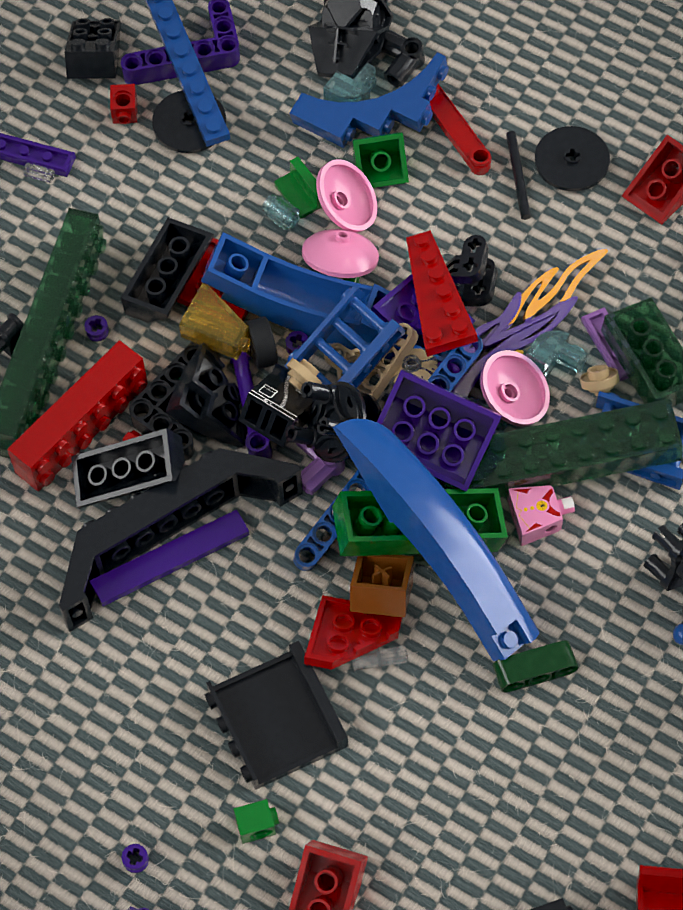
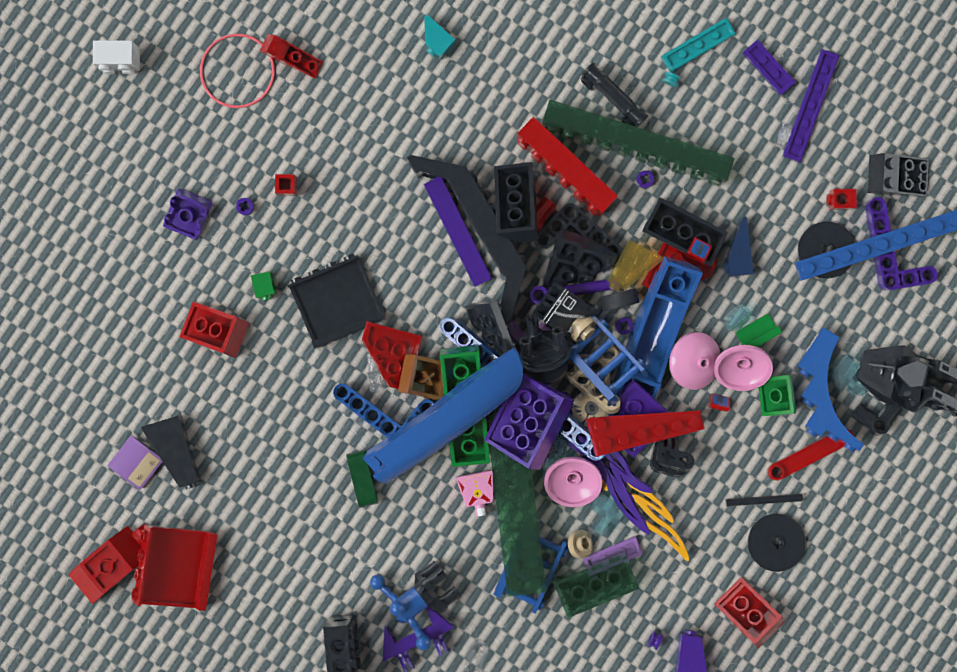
camera: 90 degrees right, 25 degrees up
(102, 792) = (285, 185): none -> red brick
(193, 245) = (699, 250): none -> slope
(199, 210) = (739, 255): none -> dark blue slope
(302, 491) = (489, 320): none -> black plate
(395, 228) = (719, 402): none -> slope
(443, 643) = (367, 406): none -> blue beam

